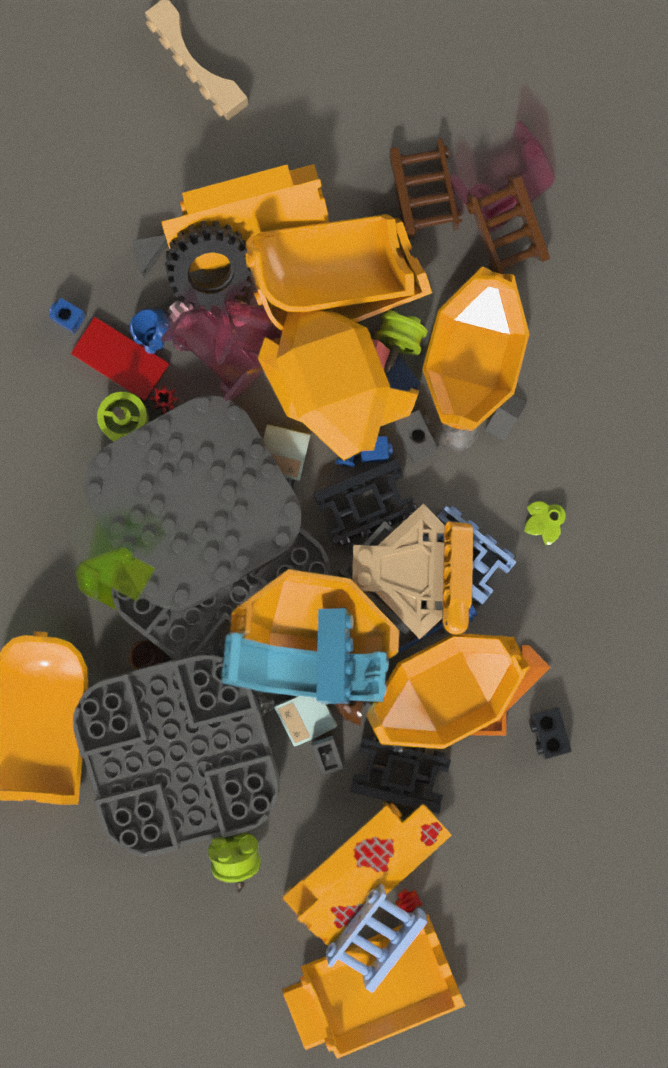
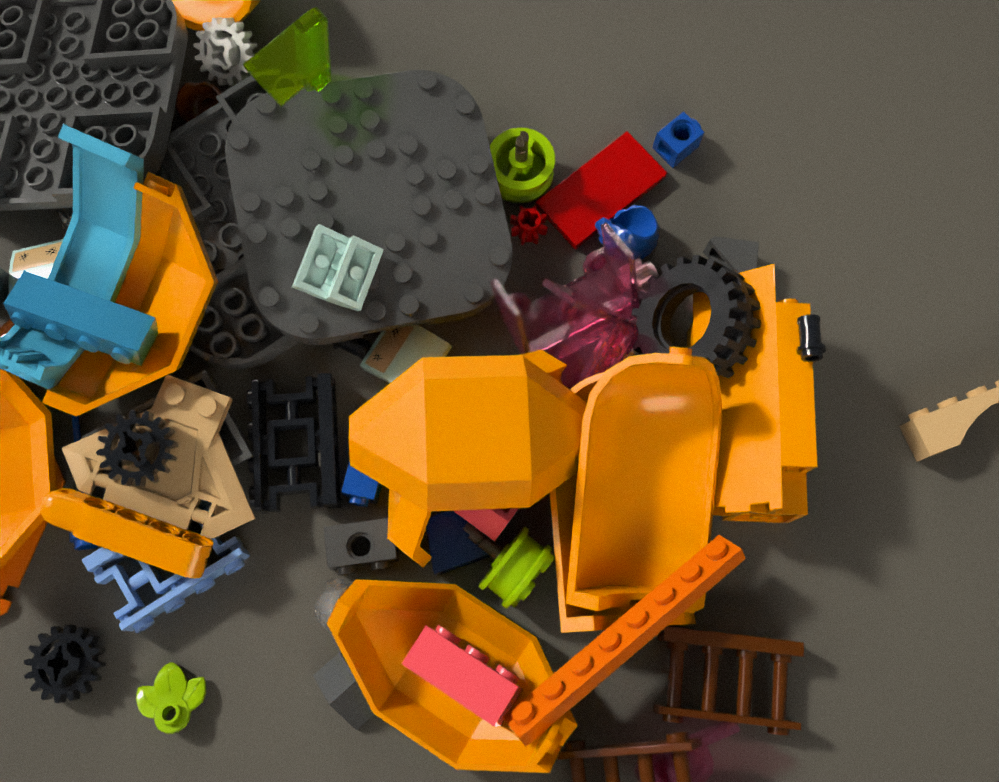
camera: 100 degrees right, 10 degrees down
(99, 654) = (222, 50): none -> white gear
(207, 187) = (810, 340): none -> black pin
(249, 500) = (338, 268): none -> light aqua slope
(398, 577) = (123, 455): none -> black gear
(422, 252) = (622, 639): none -> orange plate
(474, 343) = (463, 674): none -> coral brick
(544, 582) = (62, 678): none -> black gear

